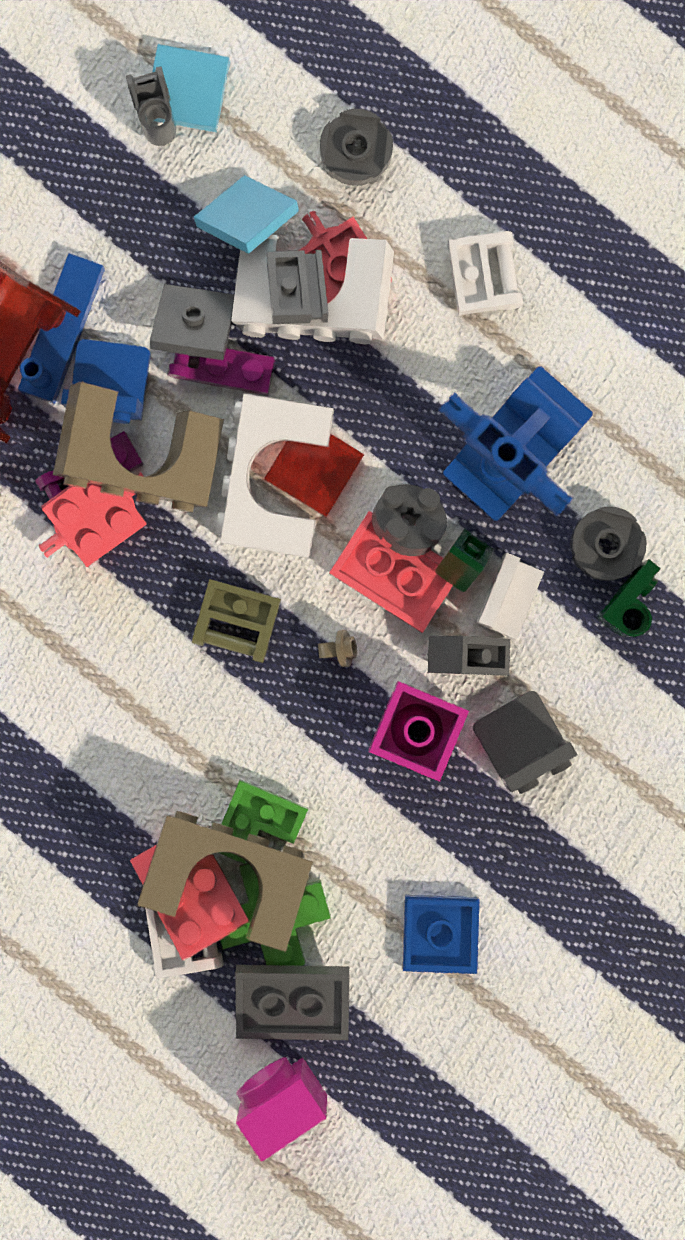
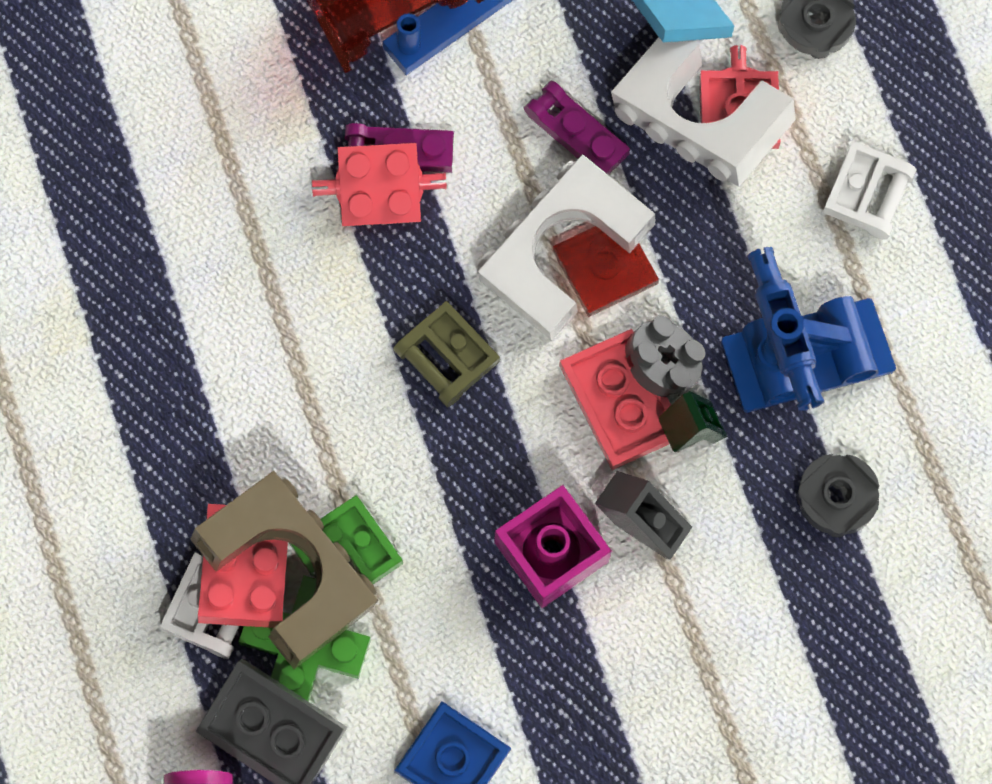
camera: 30 degrees right, 15 degrees down
(87, 453) = (409, 126): dark tan arch -> none
(115, 368) = (467, 81): blue bracket -> none
(192, 322) = (575, 75): dark grey plate -> none
(296, 287) = (687, 92): dark grey plate -> none
(343, 648) = (528, 435): dark tan plate -> none
(509, 596) = (714, 485): white panel -> none
(523, 742) = (645, 624): dark grey bracket -> none
(638, 583) = (825, 554): dark green plate -> none

